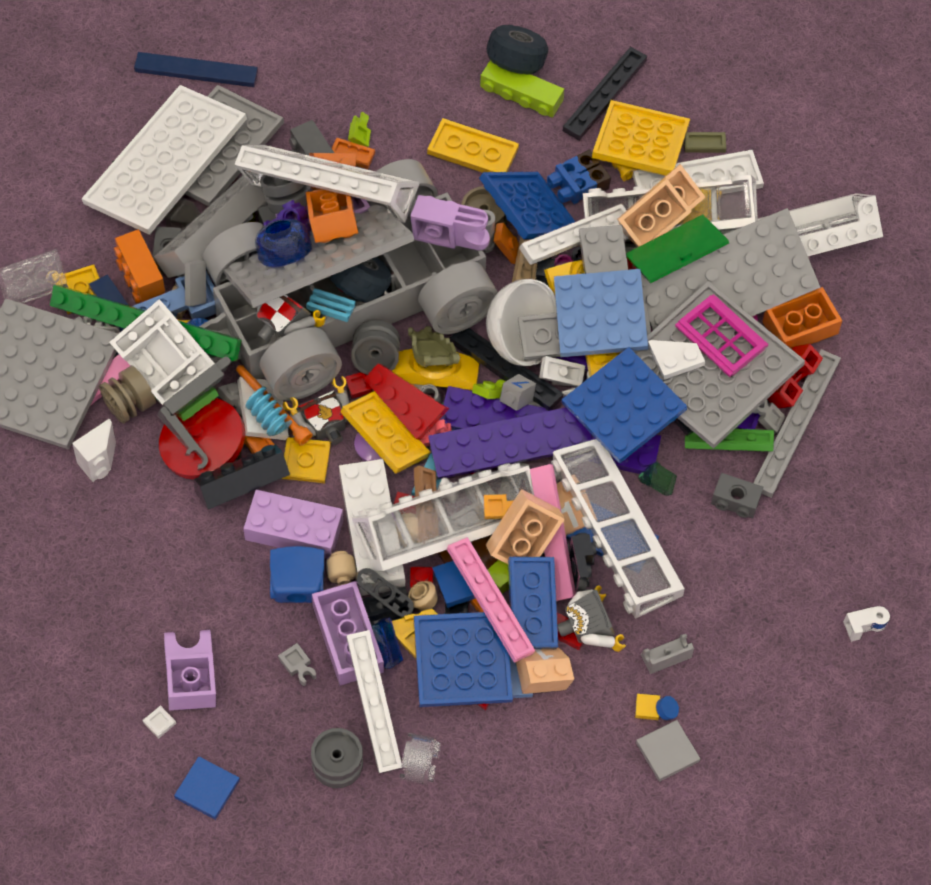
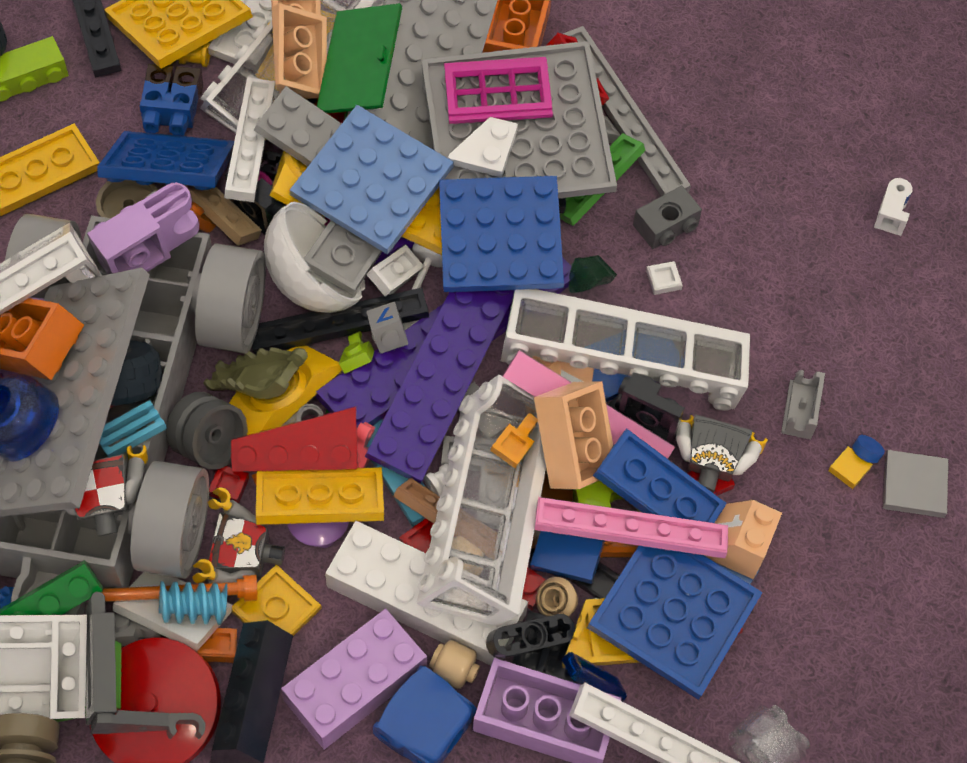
camera: 55 degrees left, 0 degrees up
(693, 522) = (664, 278): none -> white tile

